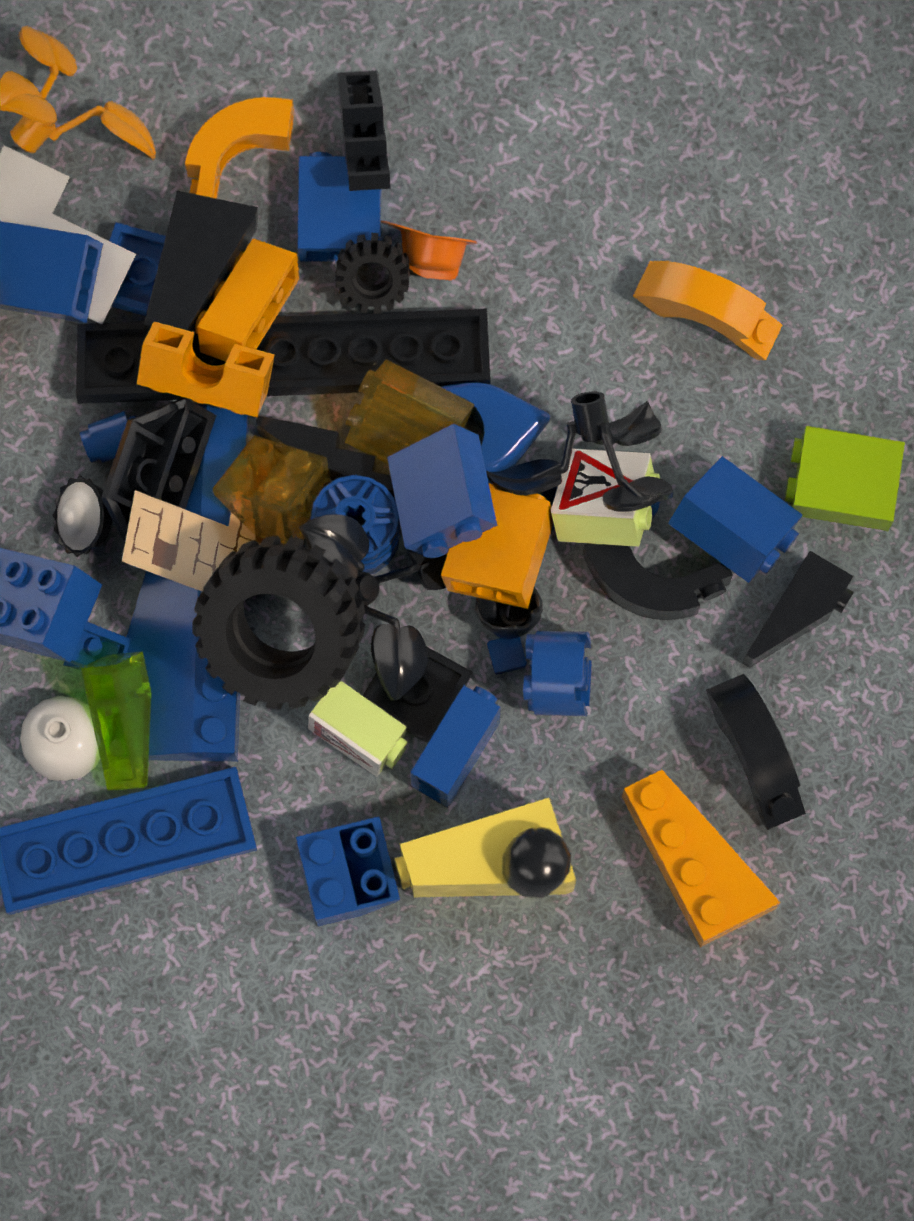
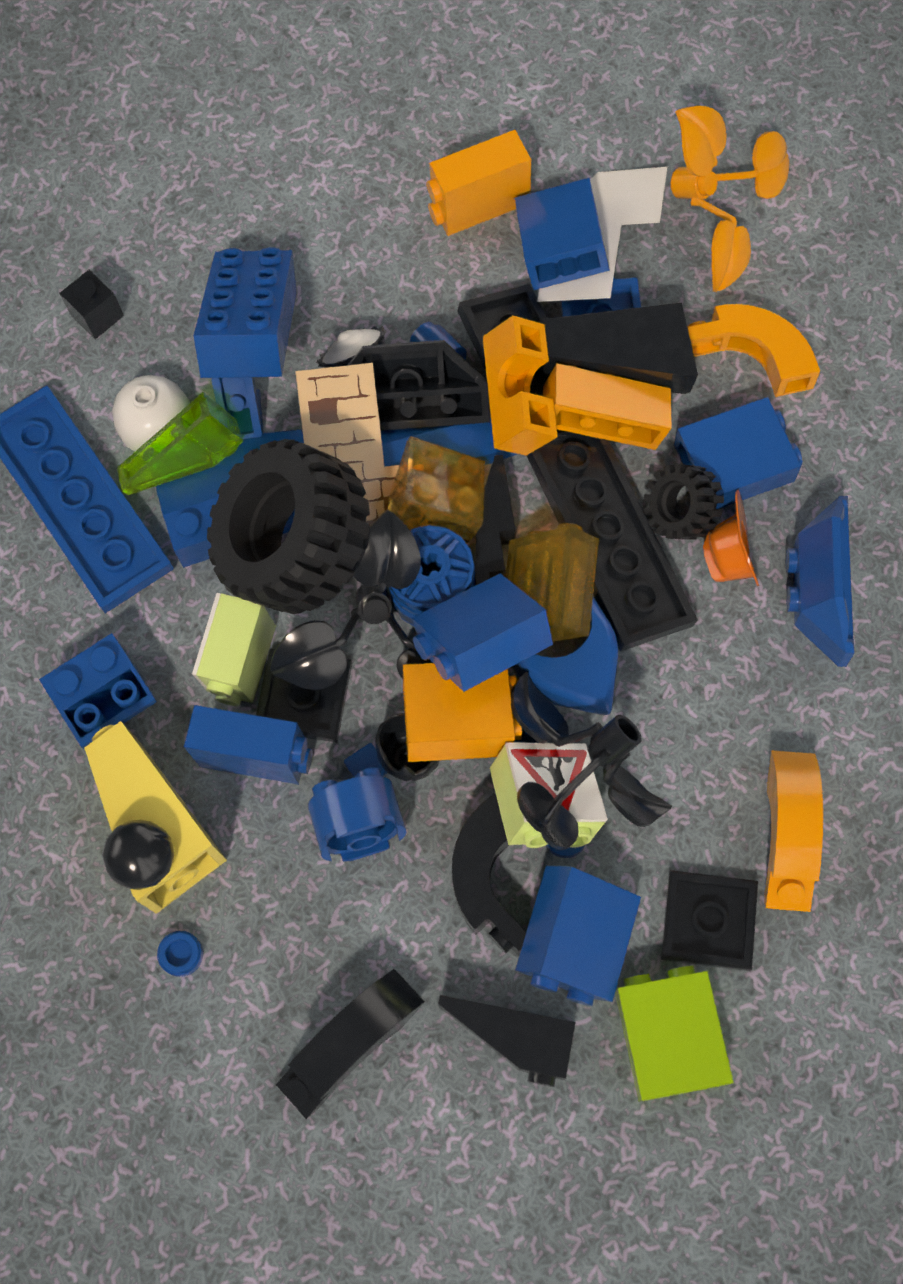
camera: 75 degrees right, 5 degrees down
(363, 131) = (818, 442): black slope -> none
(495, 187) = (823, 583): none -> blue wedge
(619, 879) = (180, 953): none -> blue tile
(697, 863) = (207, 1029): light orange wedge -> none
(758, 410) = (709, 920): none -> black tile

